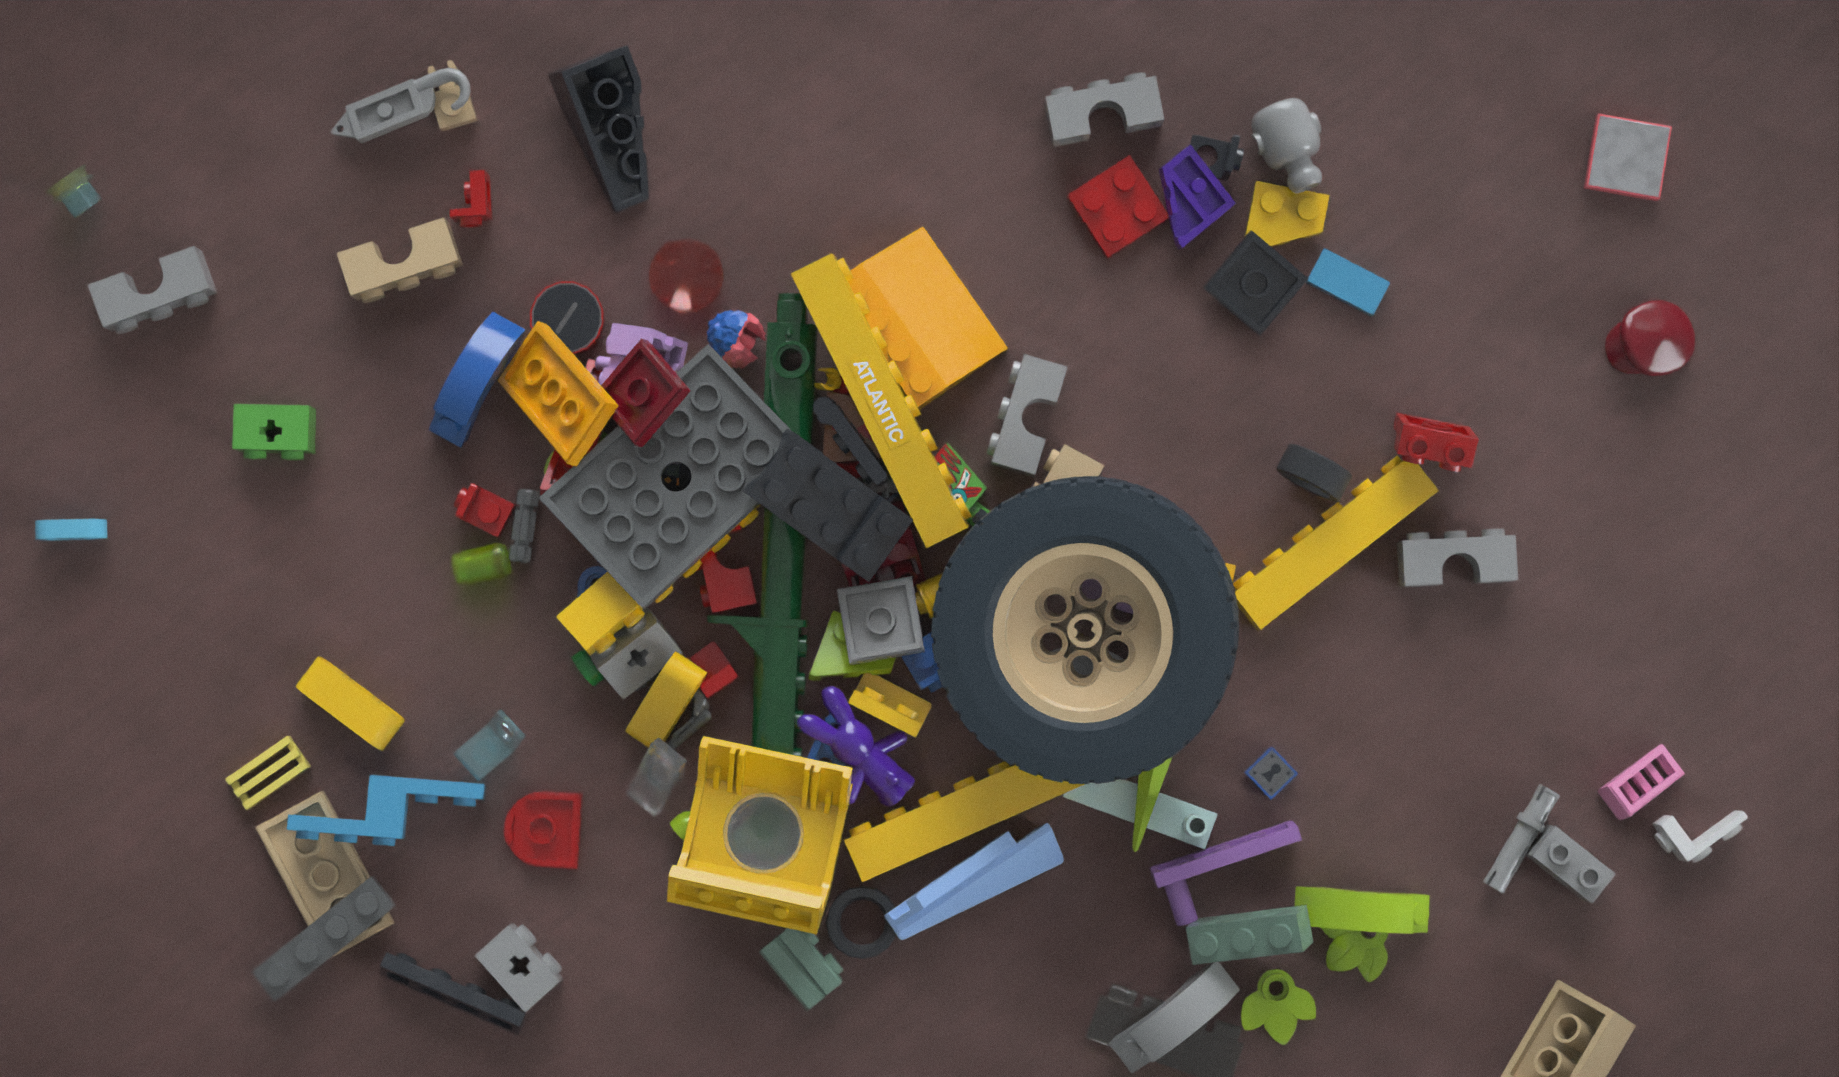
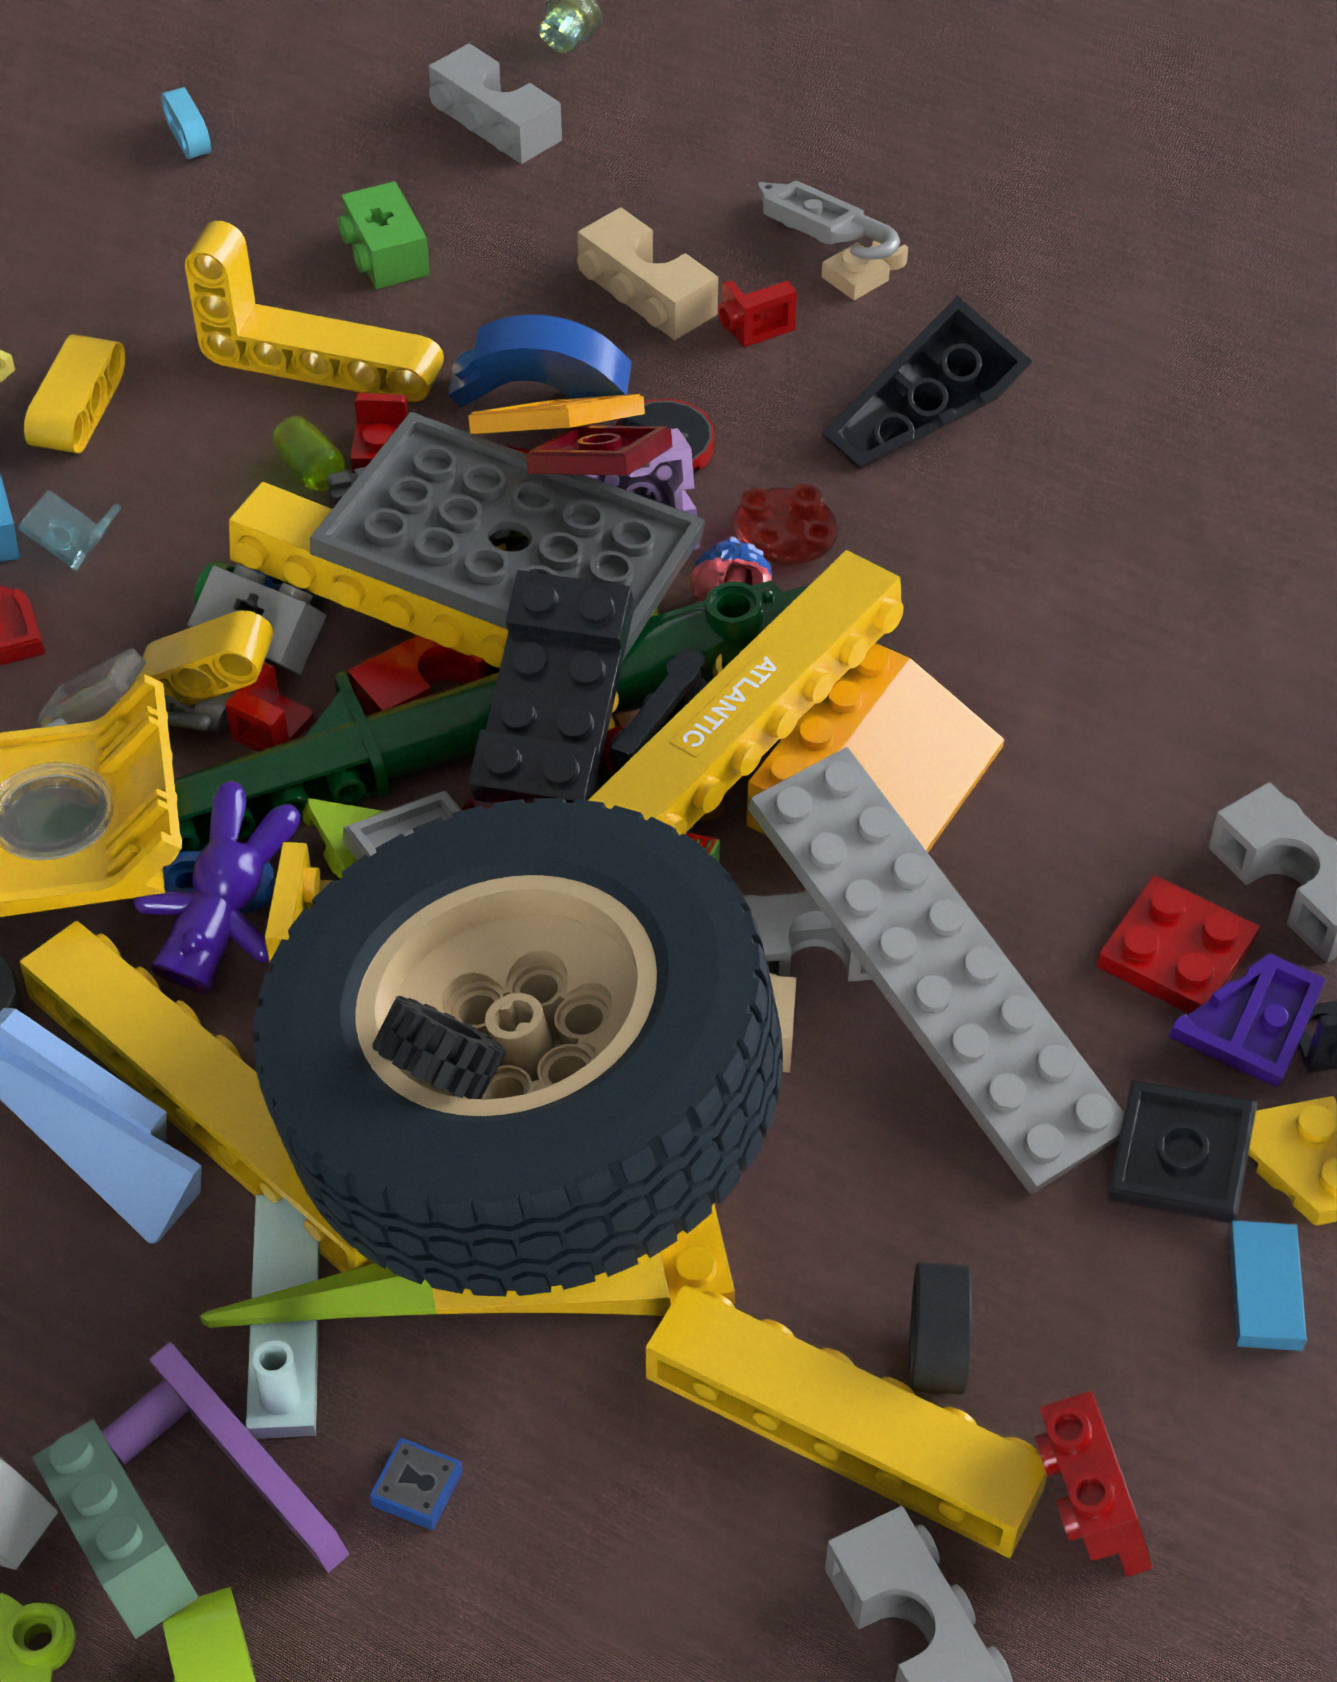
camera: 65 degrees right, 35 degrees down
(338, 568) = (294, 343): none -> yellow beam
(1088, 361) = (939, 969): none -> light grey plate
(1106, 683) = (438, 1048): none -> black tyre

